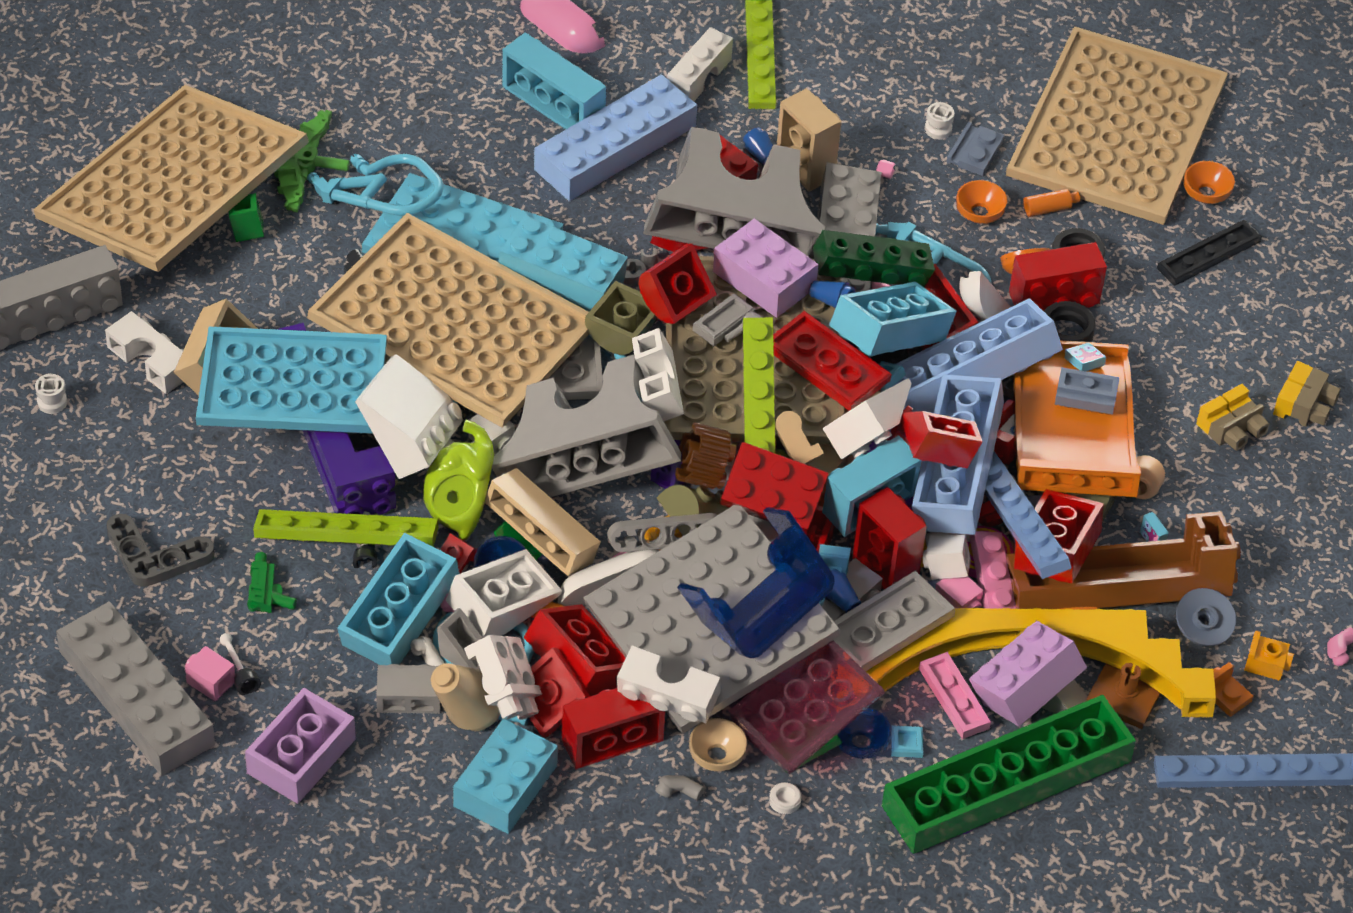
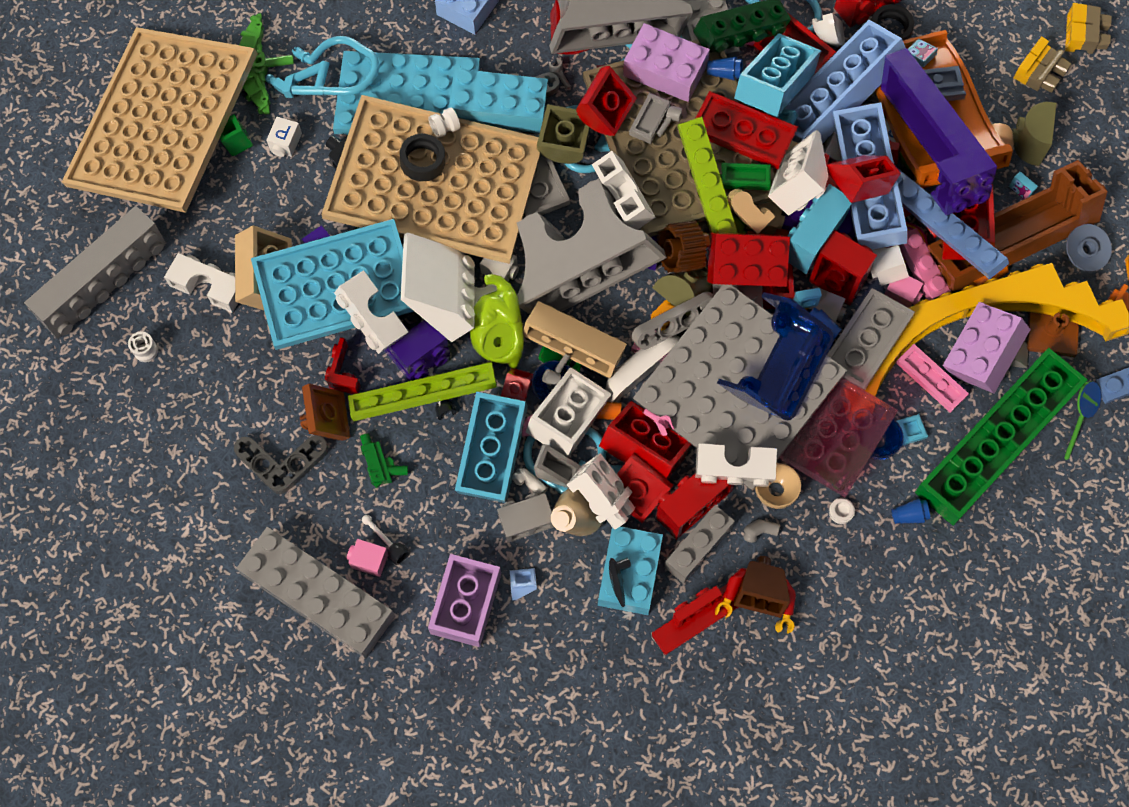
camera: 15 degrees left, 20 degrees up
(225, 514) = (325, 412): none -> dark orange tile
(254, 486) = (345, 382): none -> red bracket
(302, 236) = (284, 137): none -> white brick
(320, 436) = (379, 331): none -> white arch
(374, 754) = (522, 582): none -> light blue slope
(447, 305) = (421, 141): none -> black tyre
(485, 755) = (616, 577): none -> black bar
(488, 263) = (444, 122): none -> white wheel
(500, 551) = (553, 377): none -> light grey hand
(567, 844) = (691, 619): none -> red bracket
(576, 782) = (698, 544): none -> light grey arch
(605, 630) = (662, 422): none -> bright pink hand
(650, 839) = (762, 590): none -> reddish brown torso
(808, 405) = (746, 176): none -> green tile
(867, 822) = (911, 512): none -> blue cone
(1060, 451) = (962, 161): none -> dark purple brick
(1134, 775) = (1088, 404): none -> piece
(1189, 476) = (1035, 133): none -> olive brick

